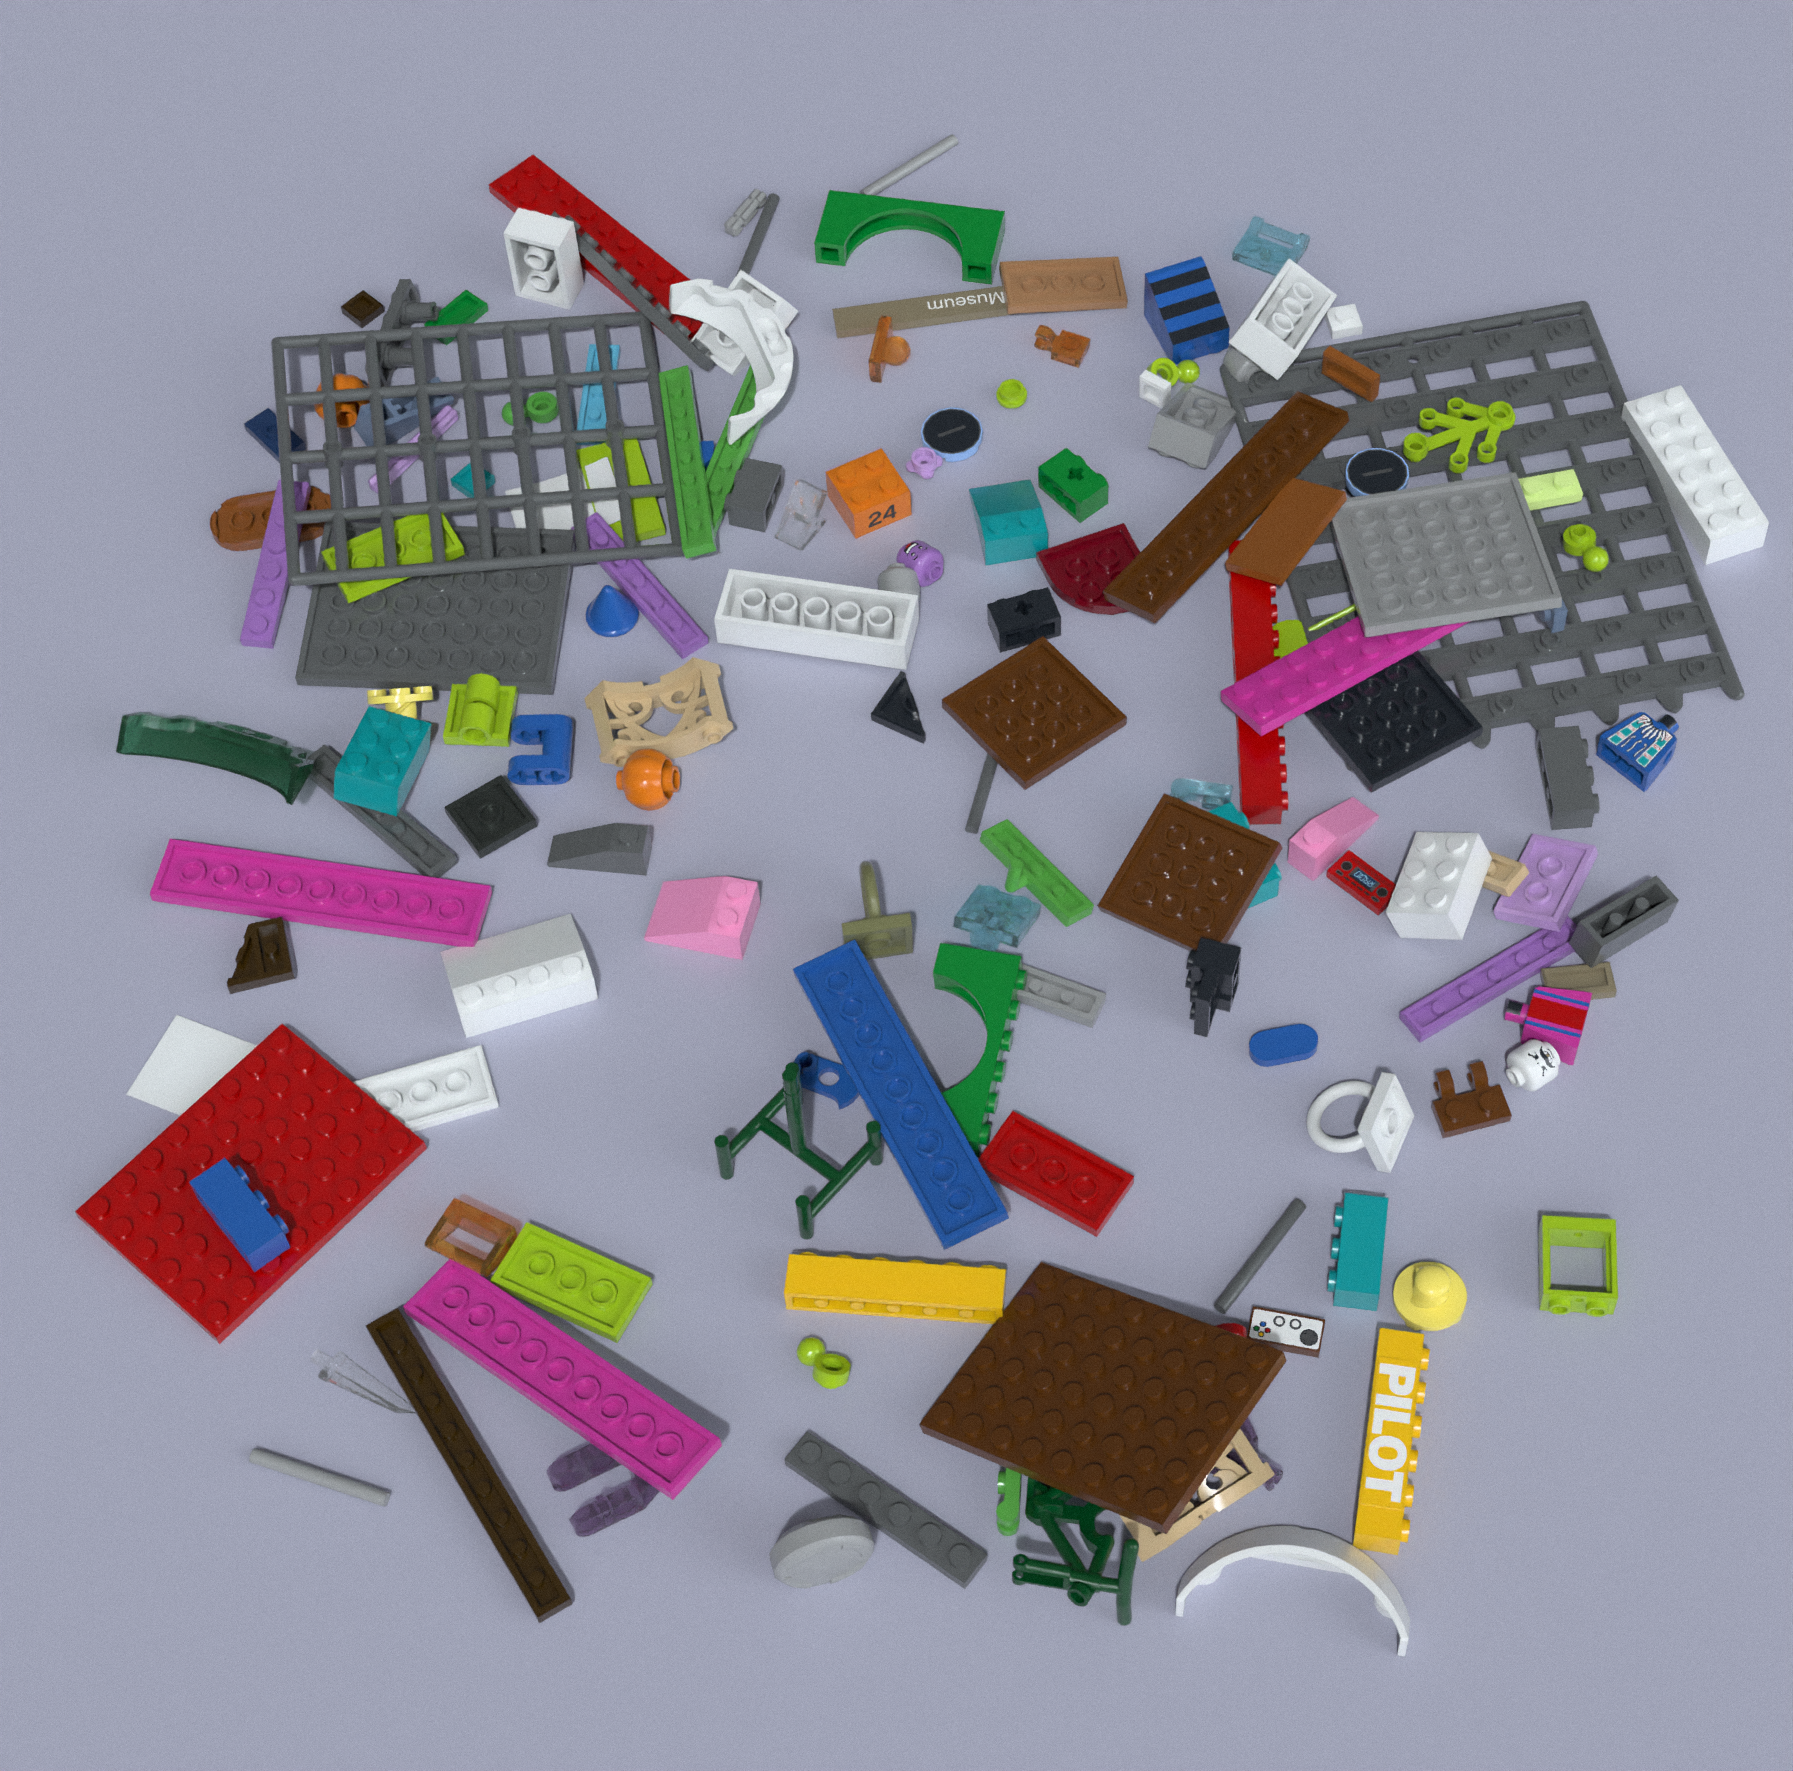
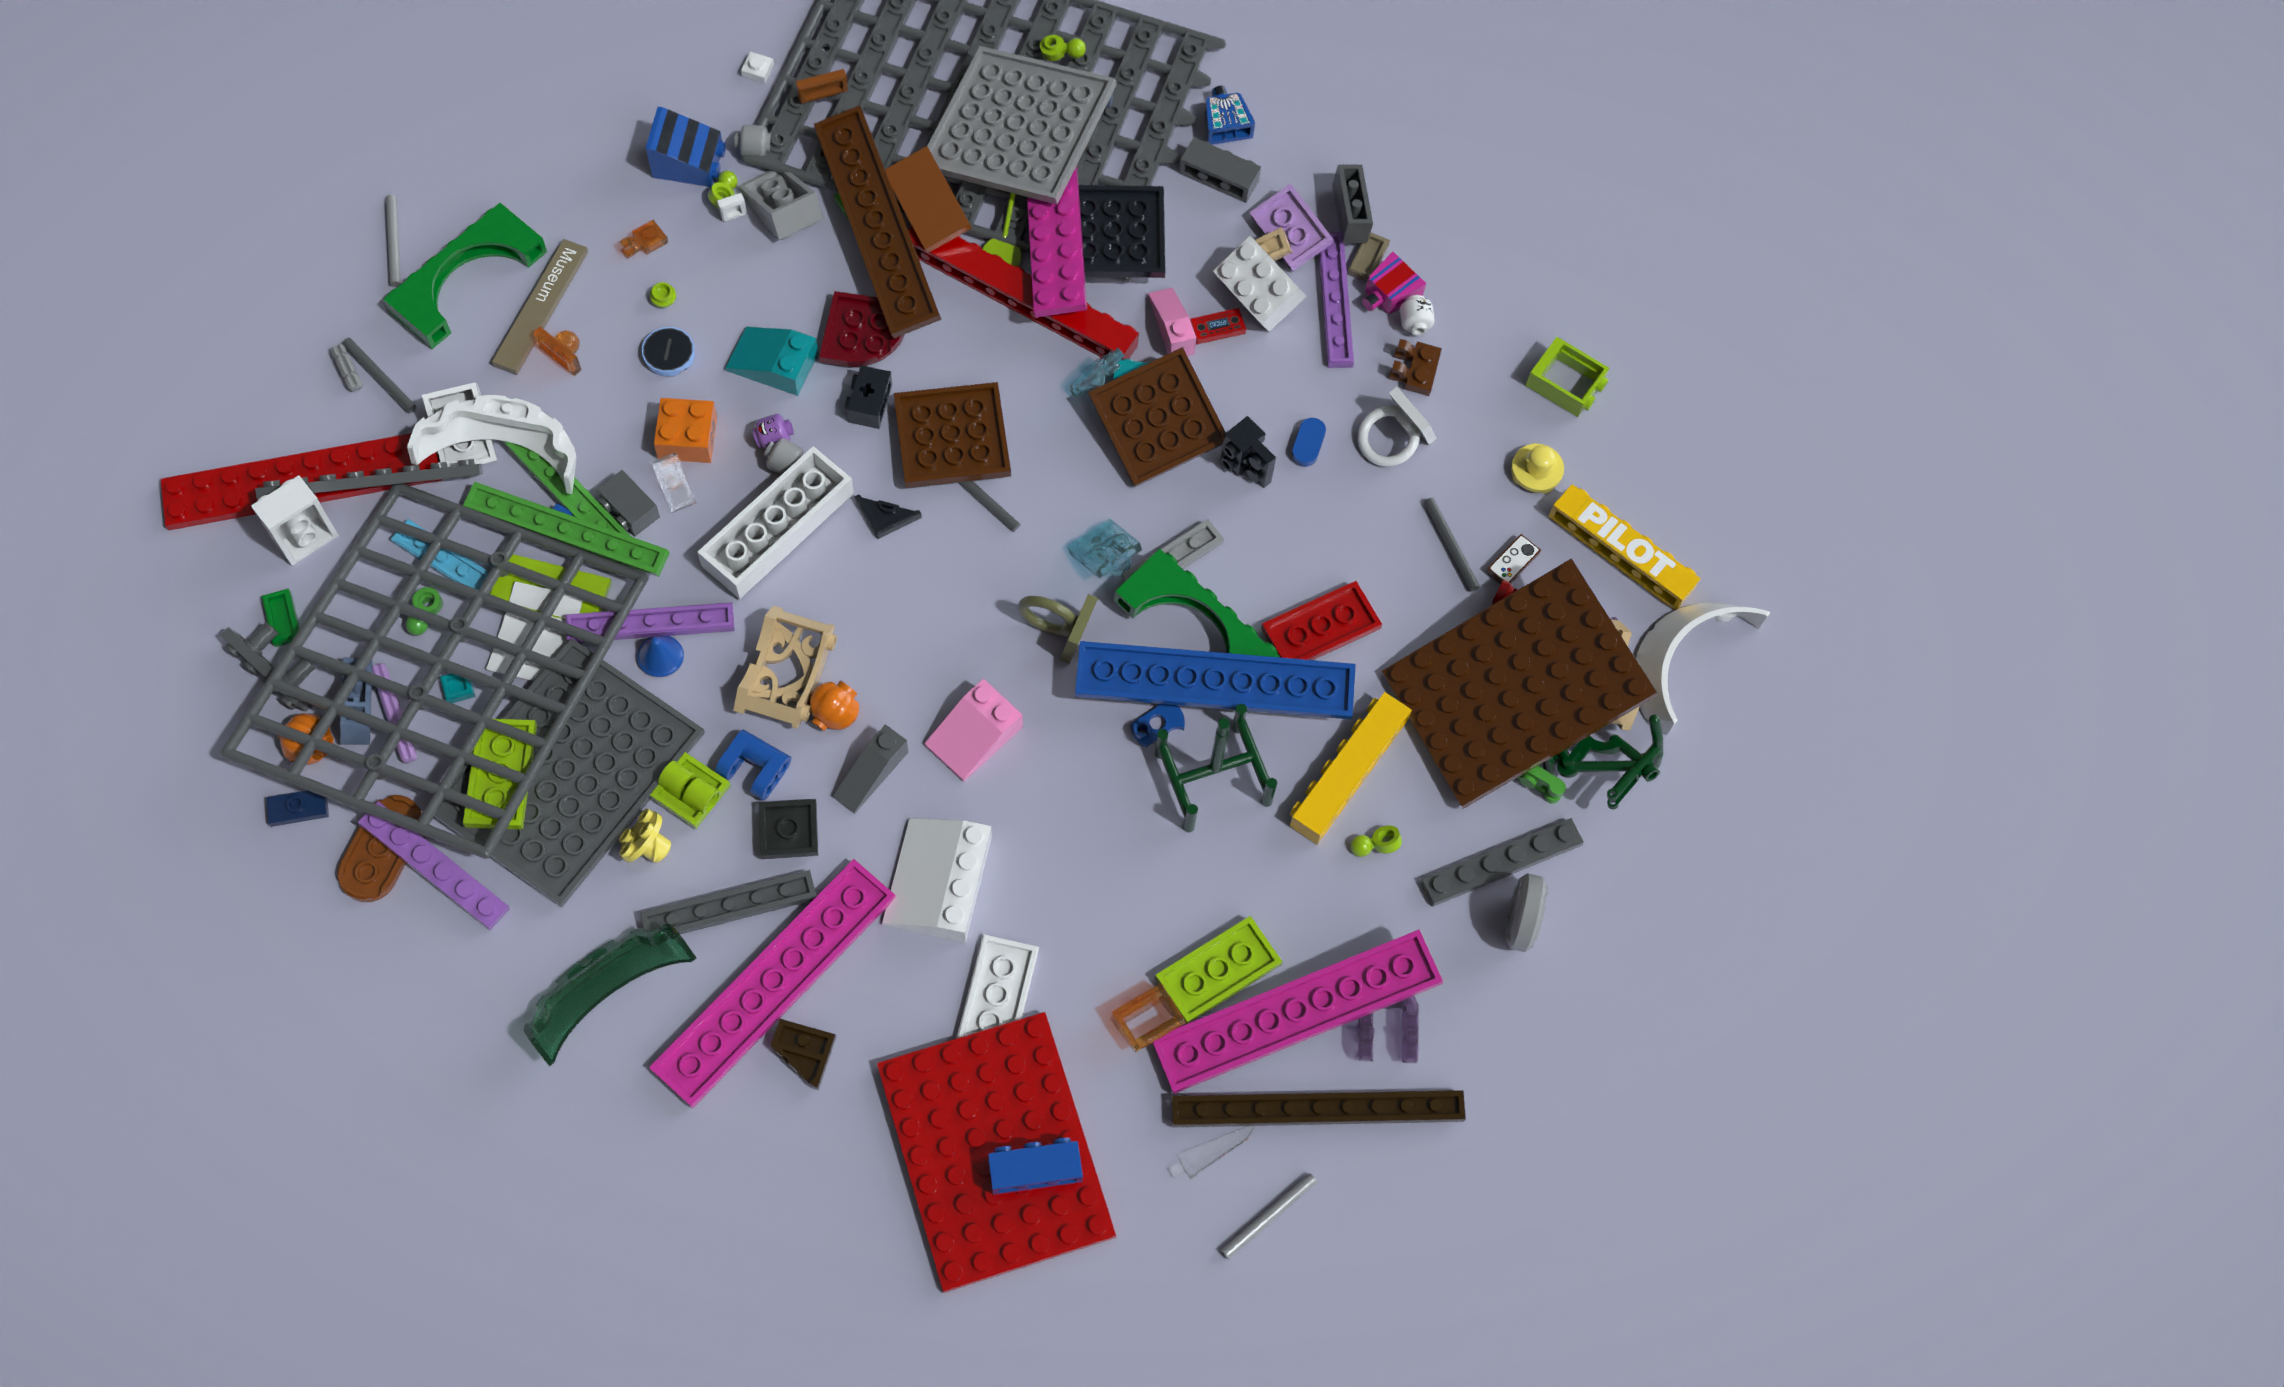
camera: 70 degrees left, 10 degrees up
(187, 1065) = (862, 1149): white sticker -> none
(362, 309) = (216, 680): dark brown tile -> none
(382, 761) = (694, 876): teal brick -> none
(924, 462) = (681, 375): lavender plate -> none
(1032, 870) = (1083, 507): bright green plate -> none
(1063, 285) = (590, 208): medium nougat tile -> none
(1073, 484) = (776, 302): green brick -> none
(1265, 254) = (661, 76): clear light blue plate -> none
(1283, 319) = (745, 95): white brick -> none
(1358, 1251) = (1487, 486): teal brick -> none
(1376, 472) = (914, 123): black tile -> none
(1495, 418) = (916, 55): lime plant -> none
(1551, 489) = (1001, 34): yellowish green plate -> none

